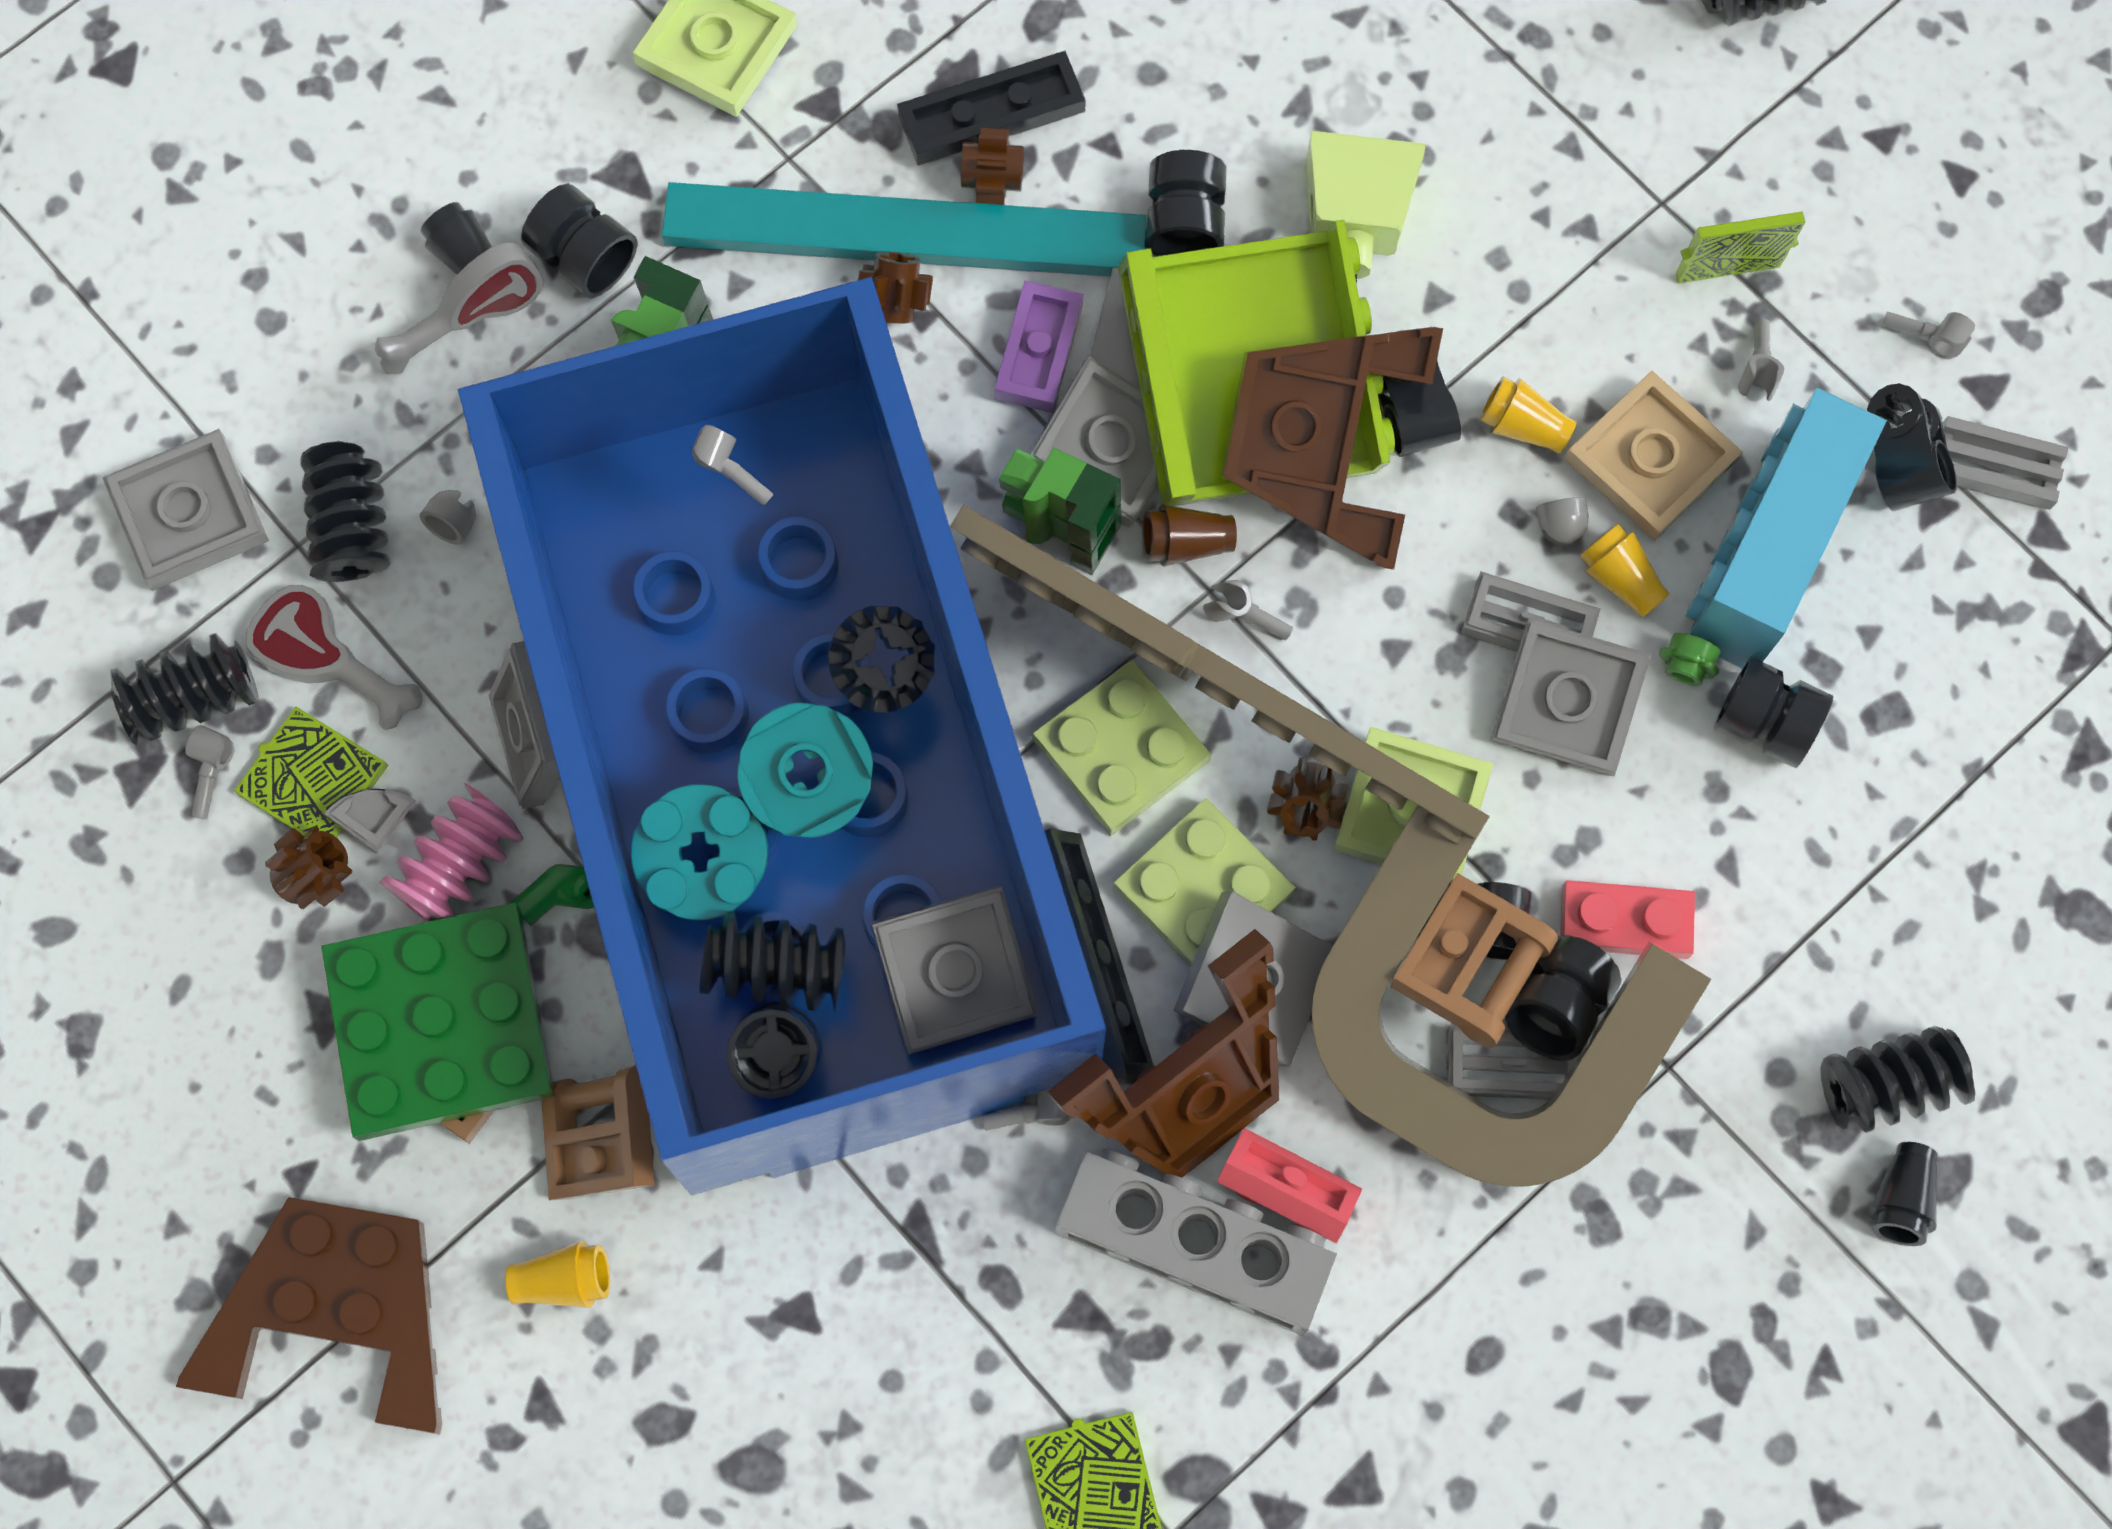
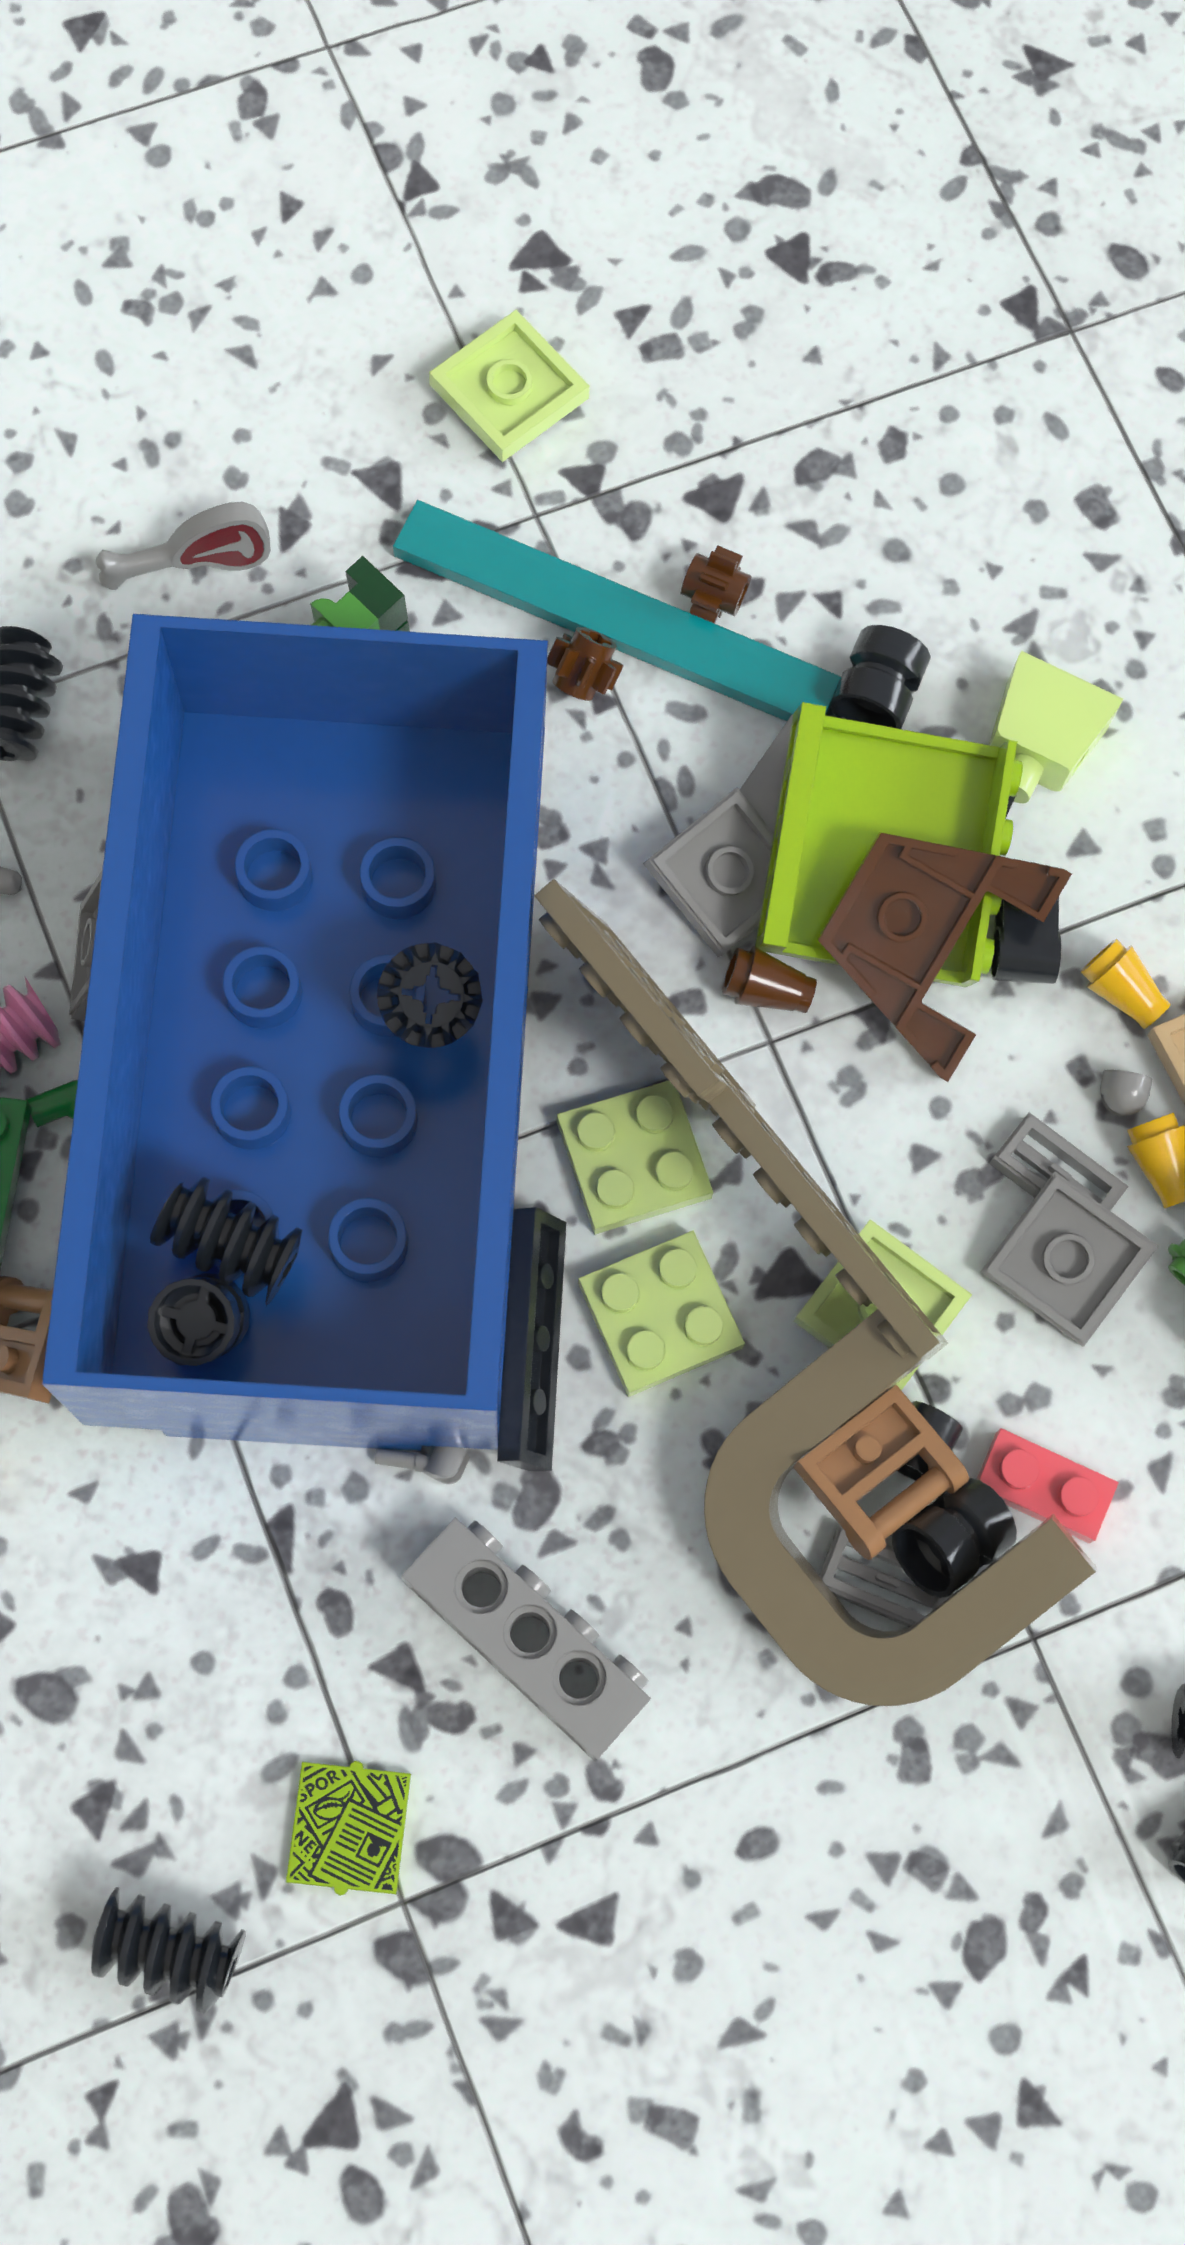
camera: 15 degrees right, 0 degrees up
(448, 517) = (102, 731): light grey hinge -> none
(454, 236) = (207, 481): black cone -> none
(572, 234) = (315, 524): black wheel -> none
(669, 827) = (166, 1132): teal plate -> none
(712, 452) = (342, 750): light grey hand -> none
(817, 733) = (291, 1049): teal plate -> none
(953, 969) = (392, 1304): light grey plate -> none
(1007, 99) = (753, 528): black plate -> none
(1038, 346) = (696, 763): medium lavender plate -> none
(1064, 501) = (665, 912): hips -> none
(1201, 1090) = (581, 1500): reddish brown wing -> none
(1240, 605) = (793, 1065): light grey hand -> none
(1289, 1185) = (633, 1618): coral plate -> none
(1292, 973) = (671, 1413): light grey plate -> none
(1307, 799) = (785, 1266): reddish brown gear -> none

